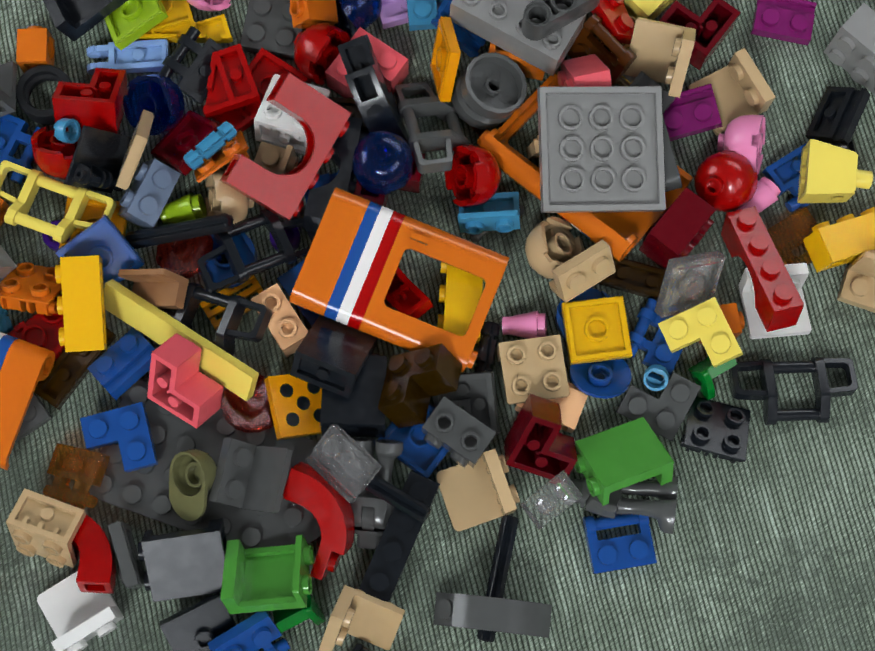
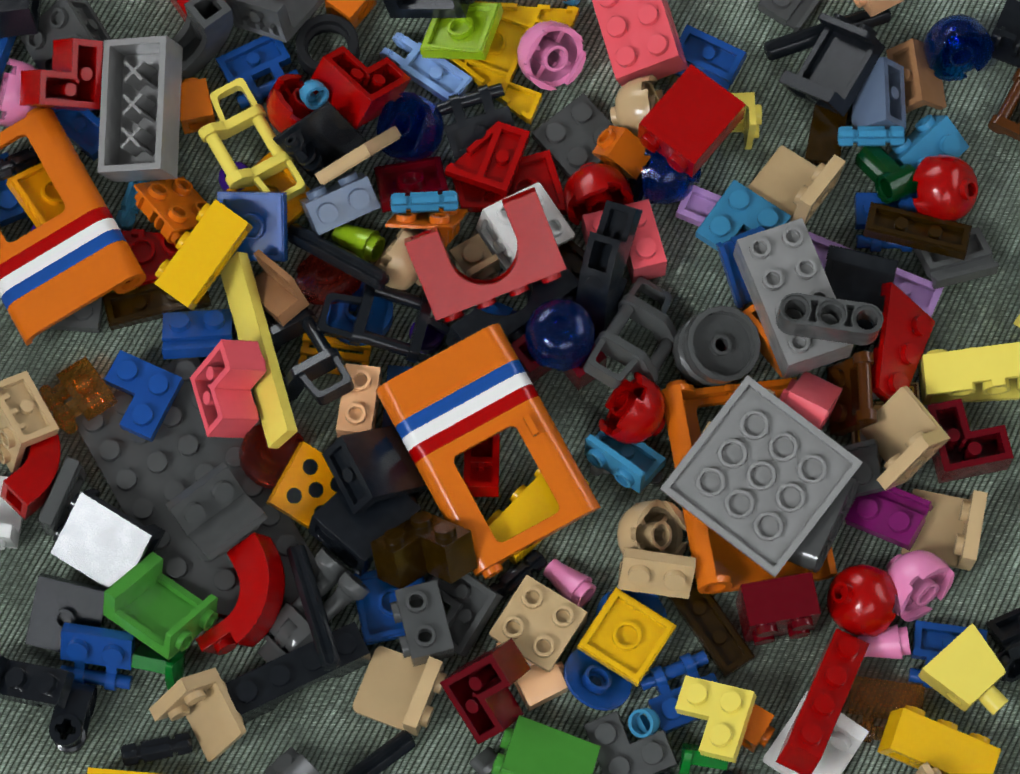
camera: 45 degrees right, 5 degrees down
(190, 481) = (165, 476): olive cap -> none
(343, 463) = (301, 565): clear plate -> none
(445, 59) = (698, 286): light orange tile -> none
(551, 500) = (455, 749): clear plate -> none
(689, 282) = (744, 660): clear plate -> none

